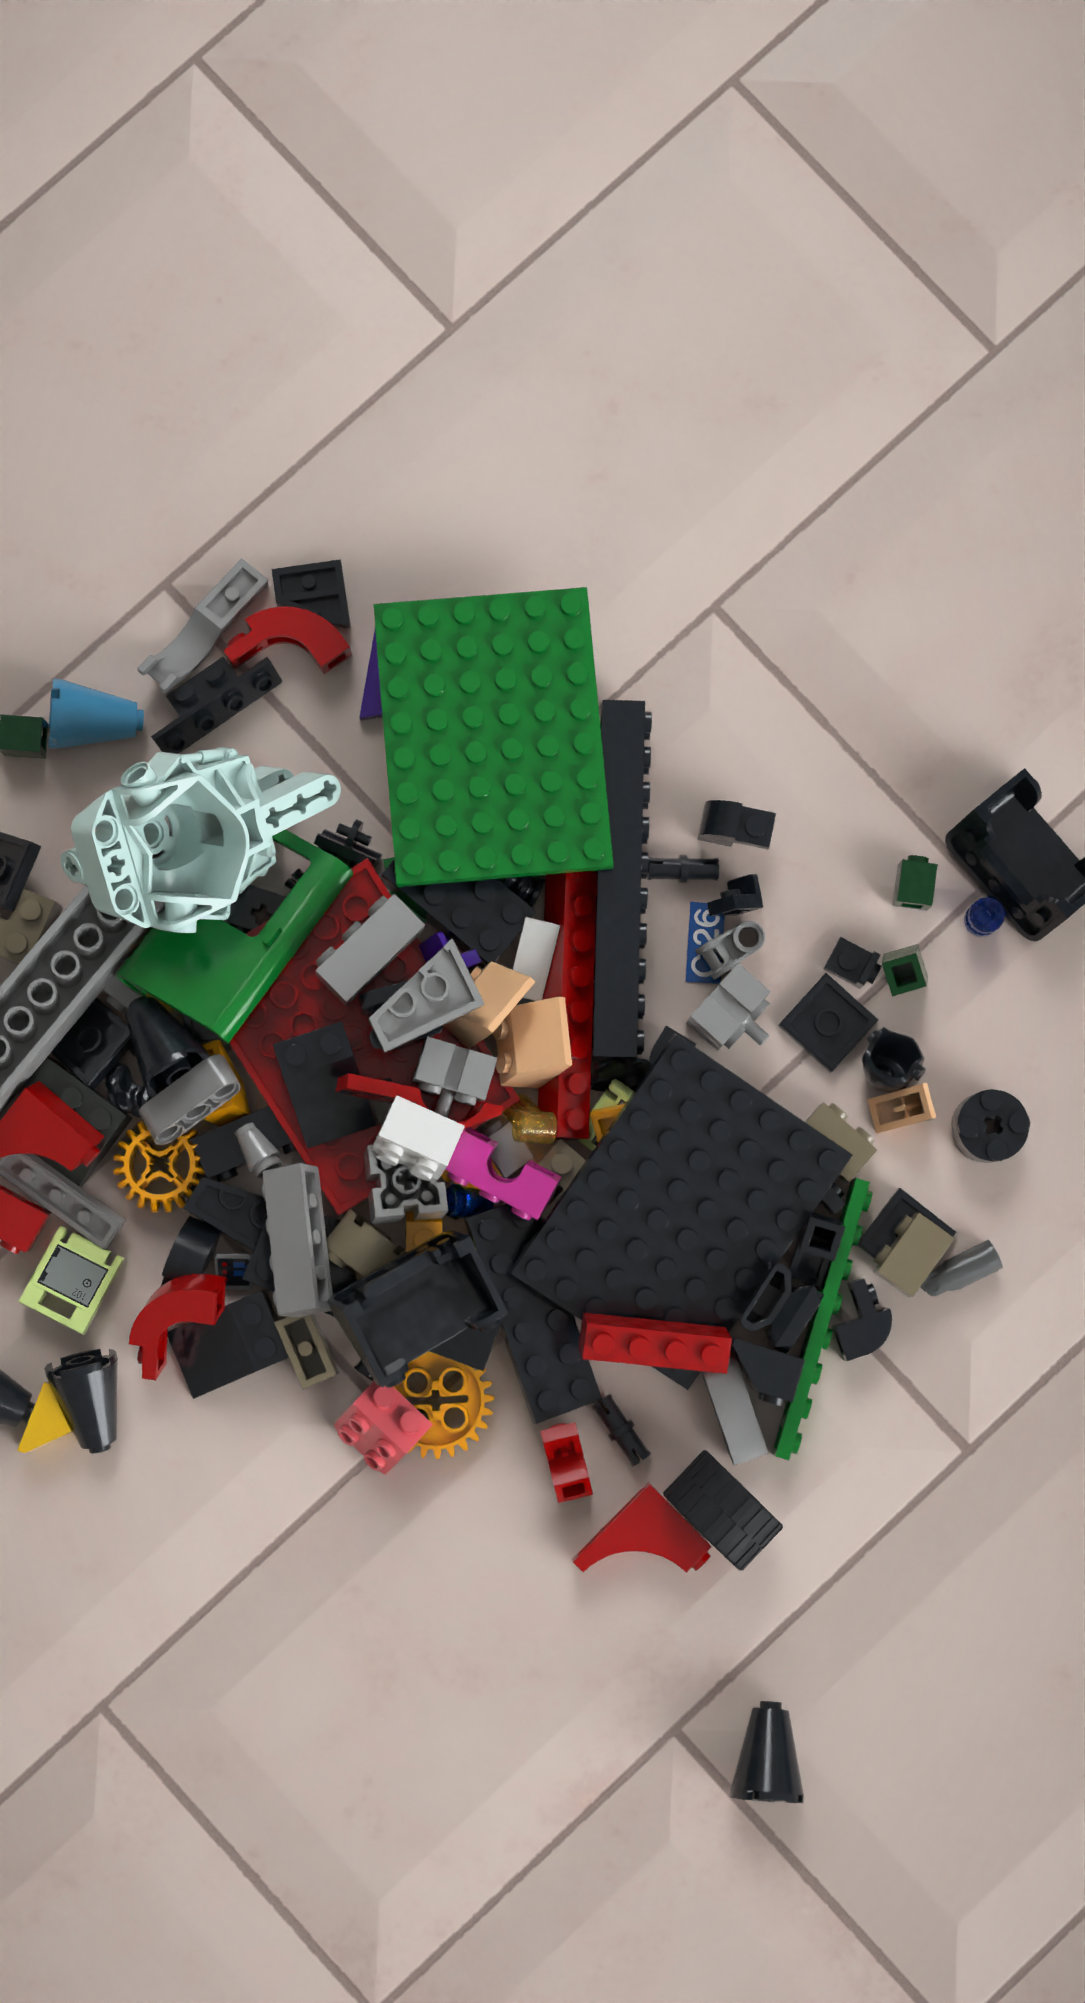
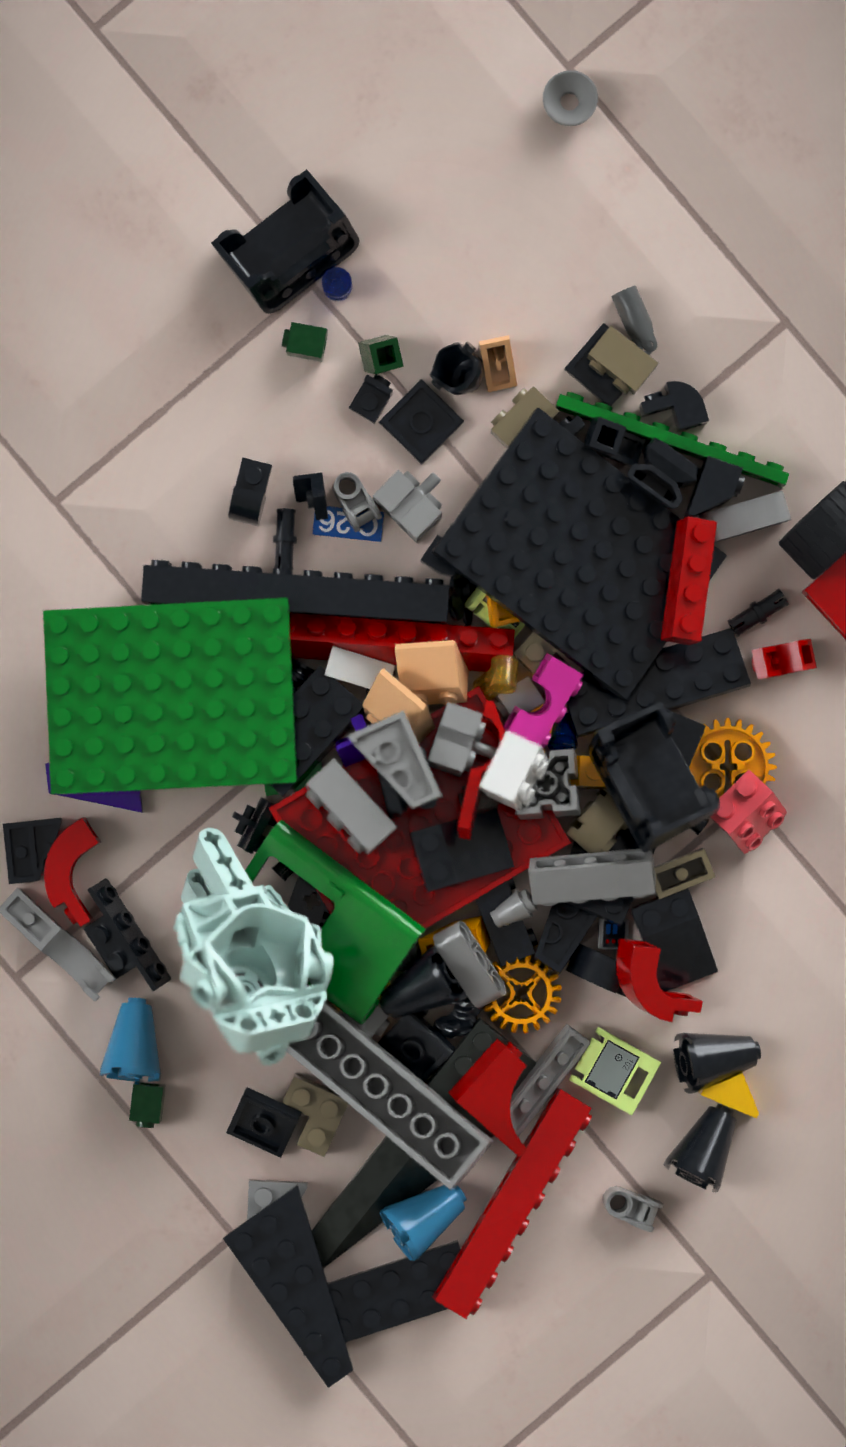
camera: 85 degrees left, 5 degrees up
(1010, 1124) = (514, 272): black brick -> none

